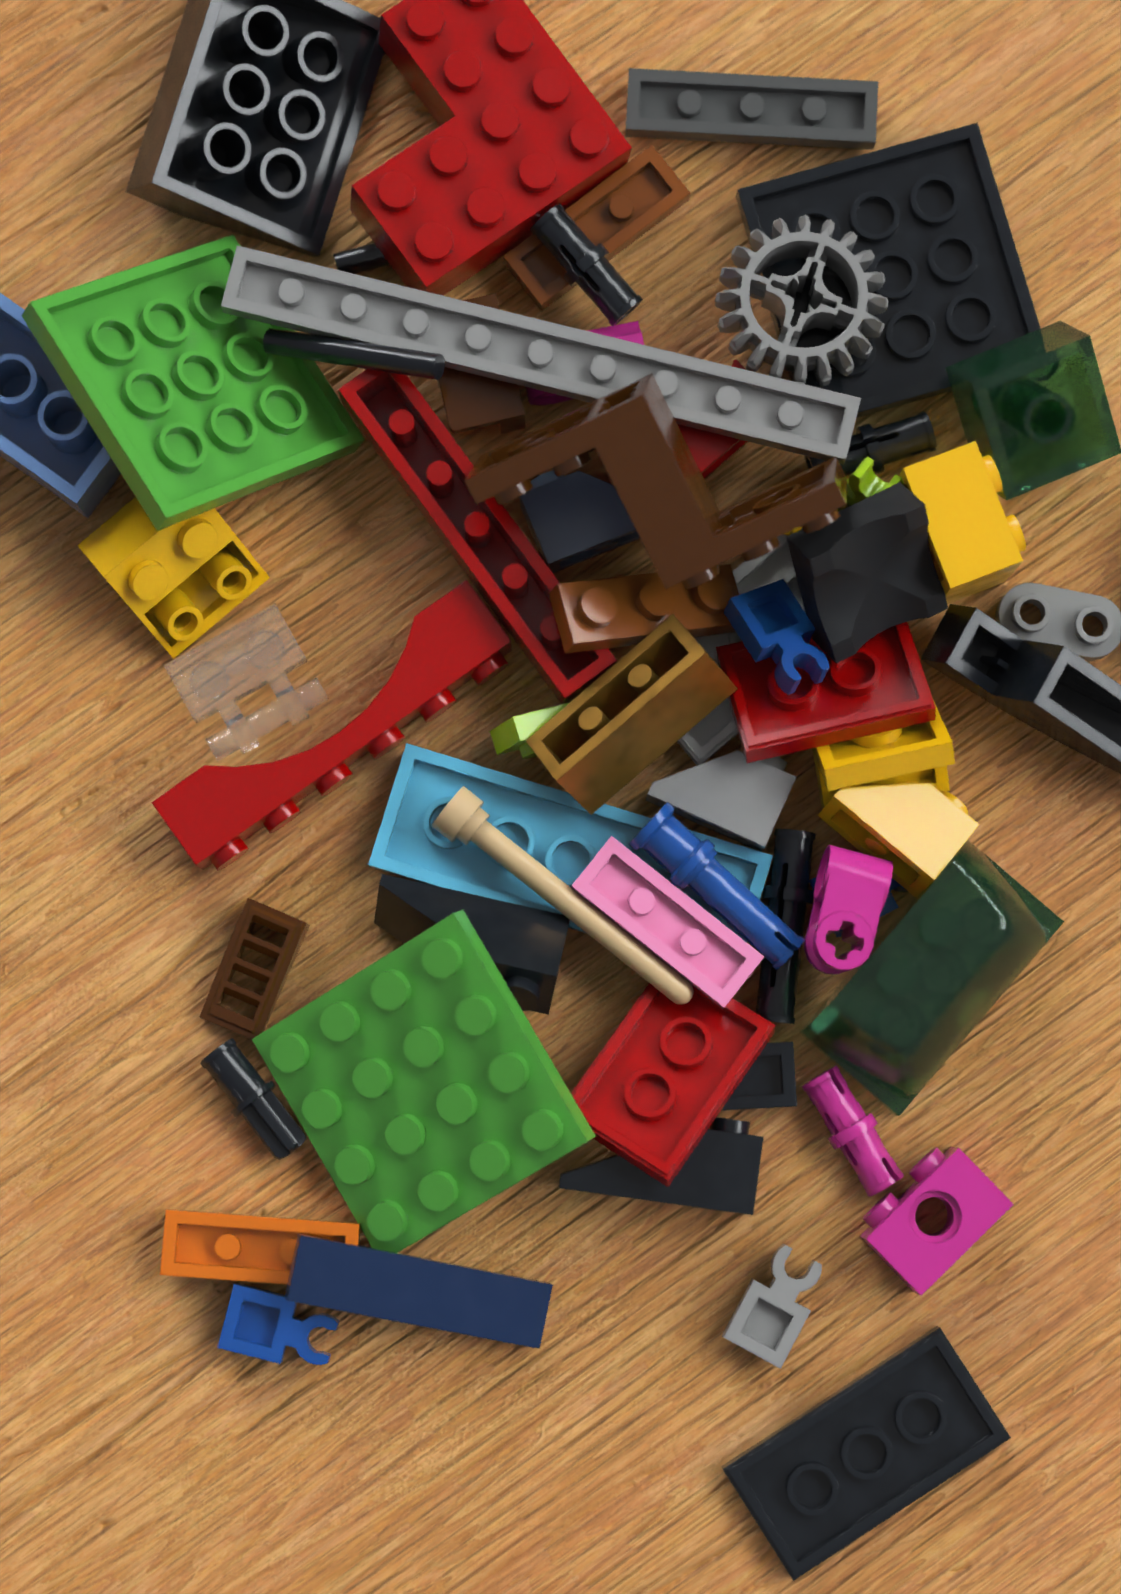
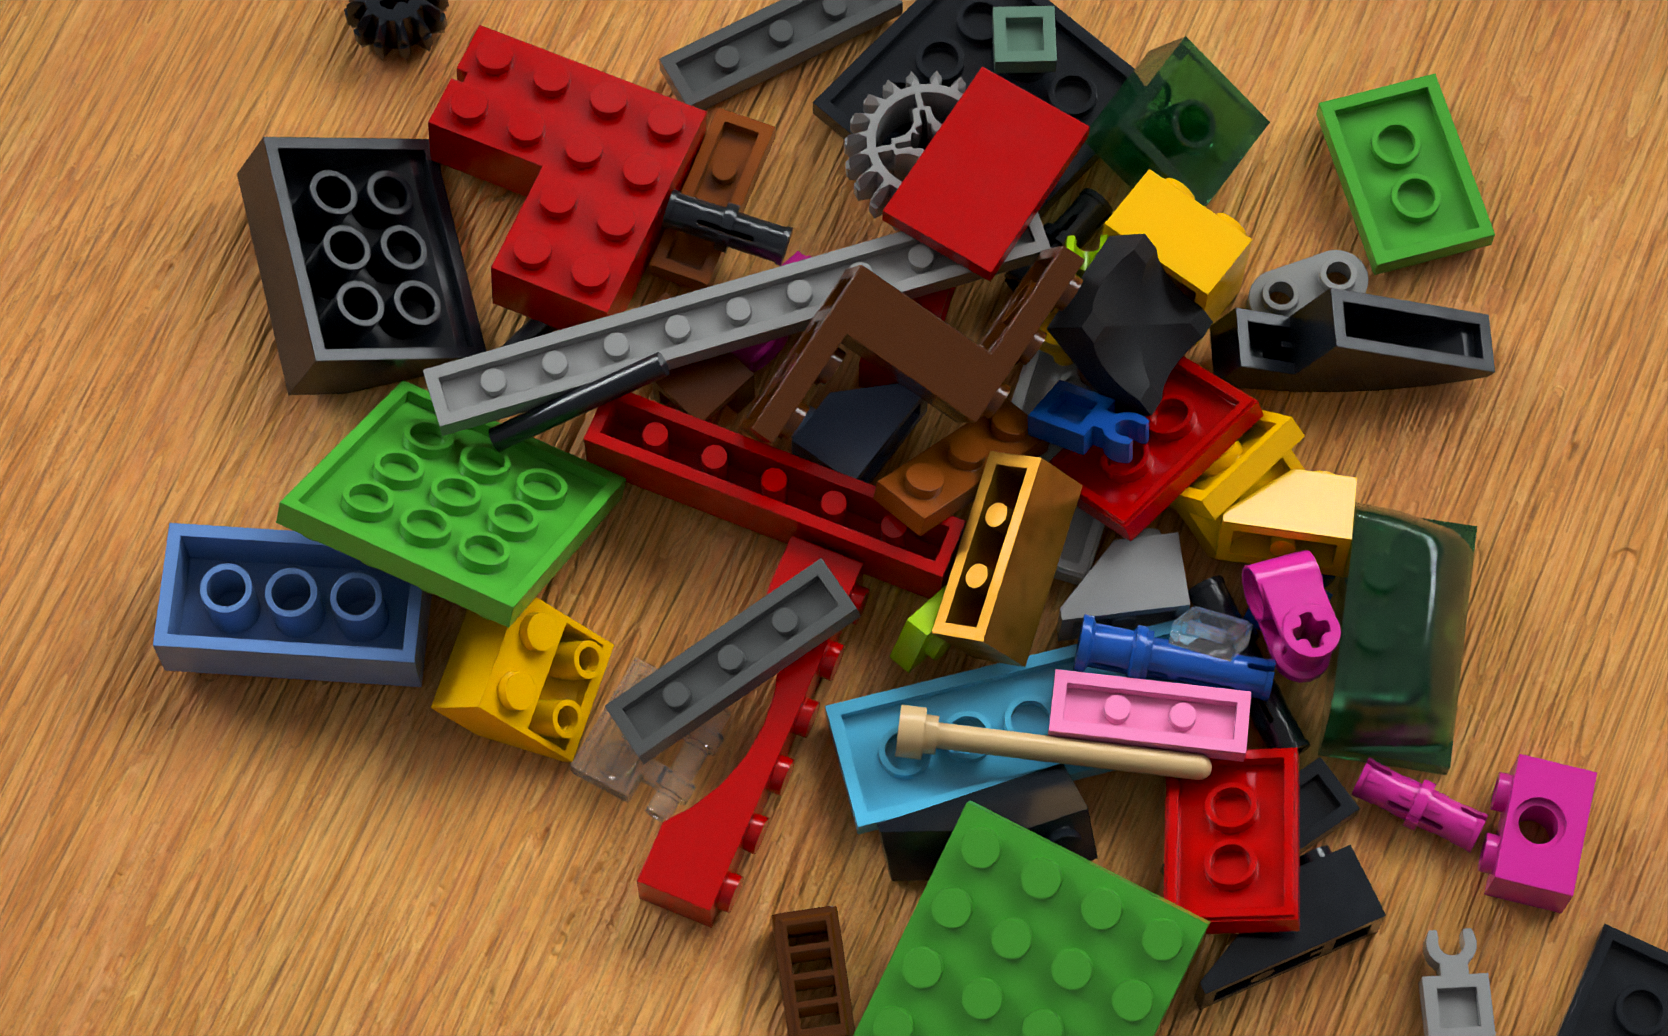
camera: 30 degrees left, 15 degrees down
(344, 663) = (732, 661): none -> dark grey plate
(763, 885) = (1211, 633): none -> clear tile
(831, 357) = (985, 173): none -> red tile
(955, 244) = (1024, 39): none -> sand green plate

